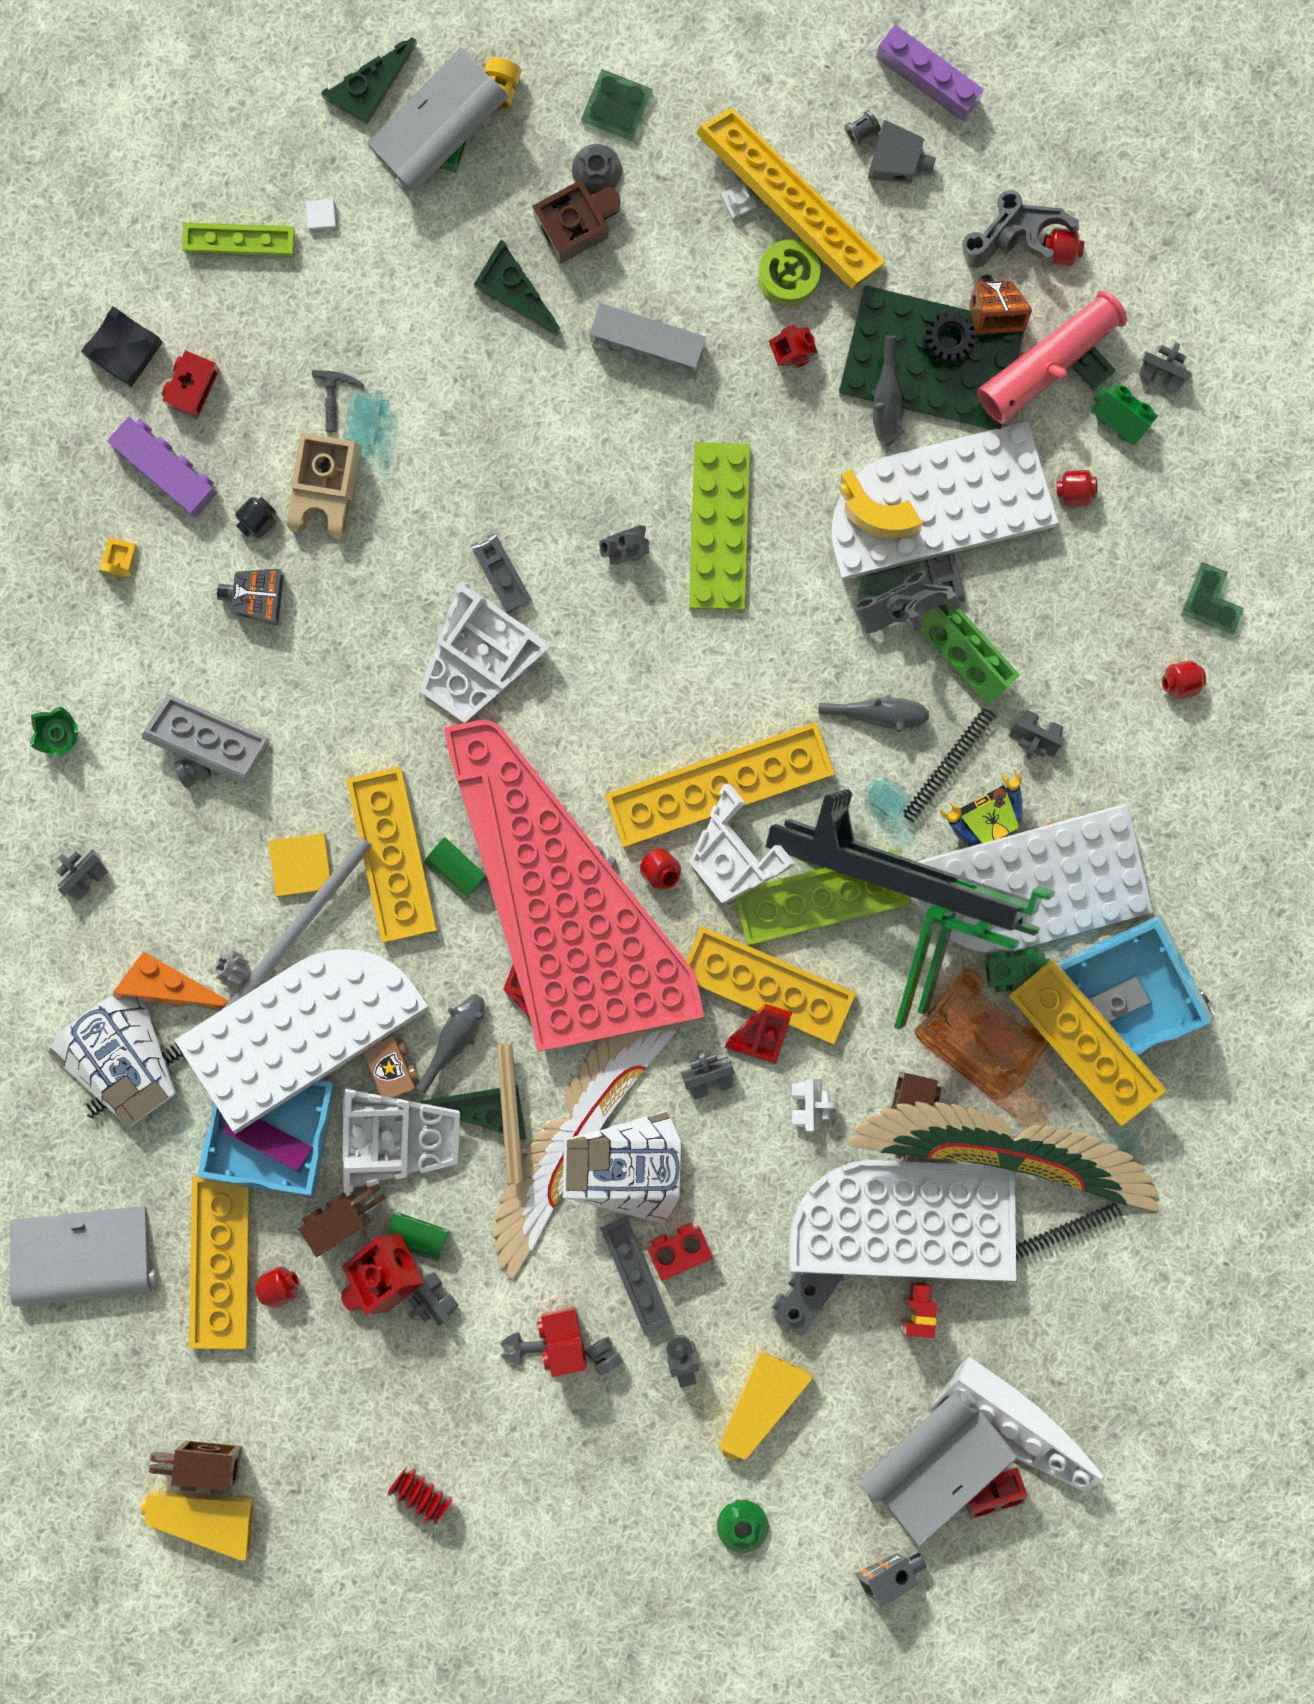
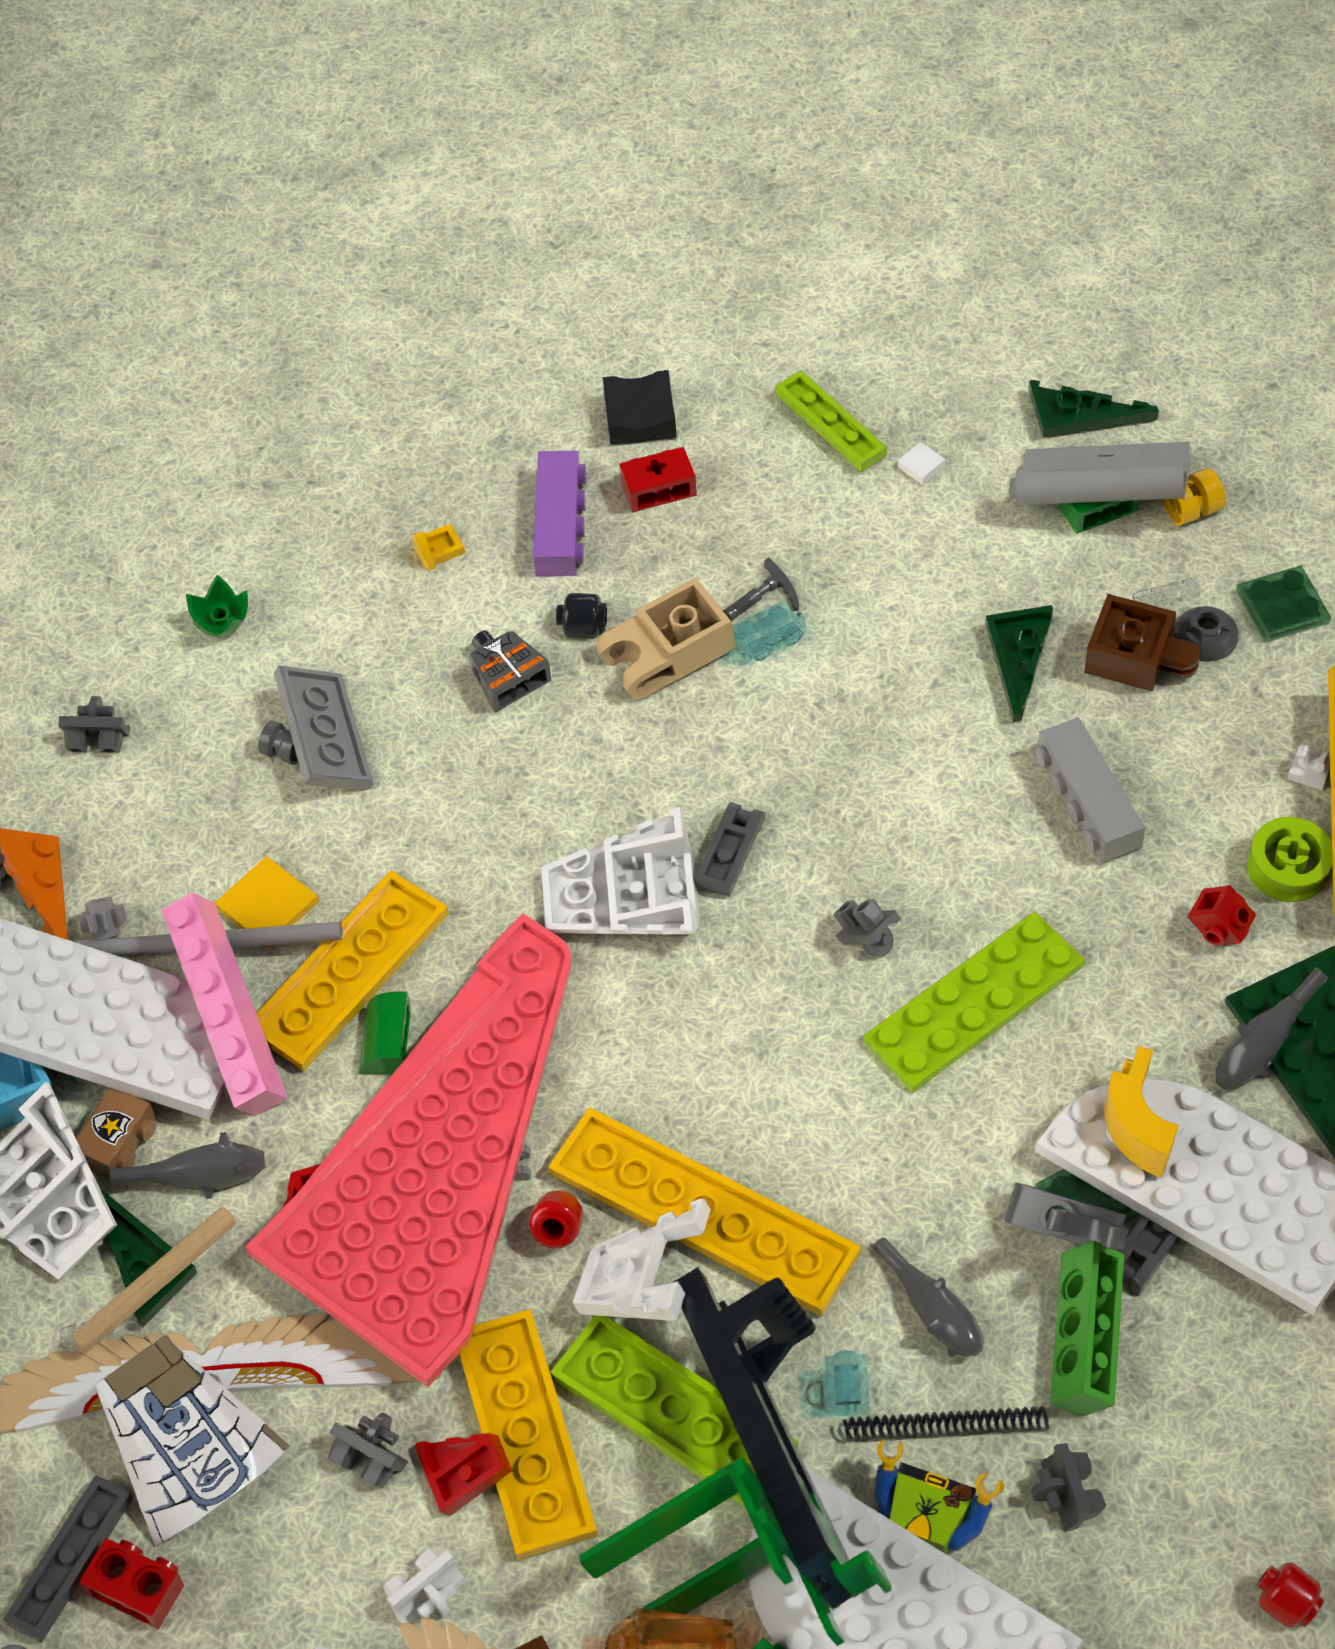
camera: 55 degrees right, 30 degrees down
(363, 946) = (224, 1005): none -> bright pink brick

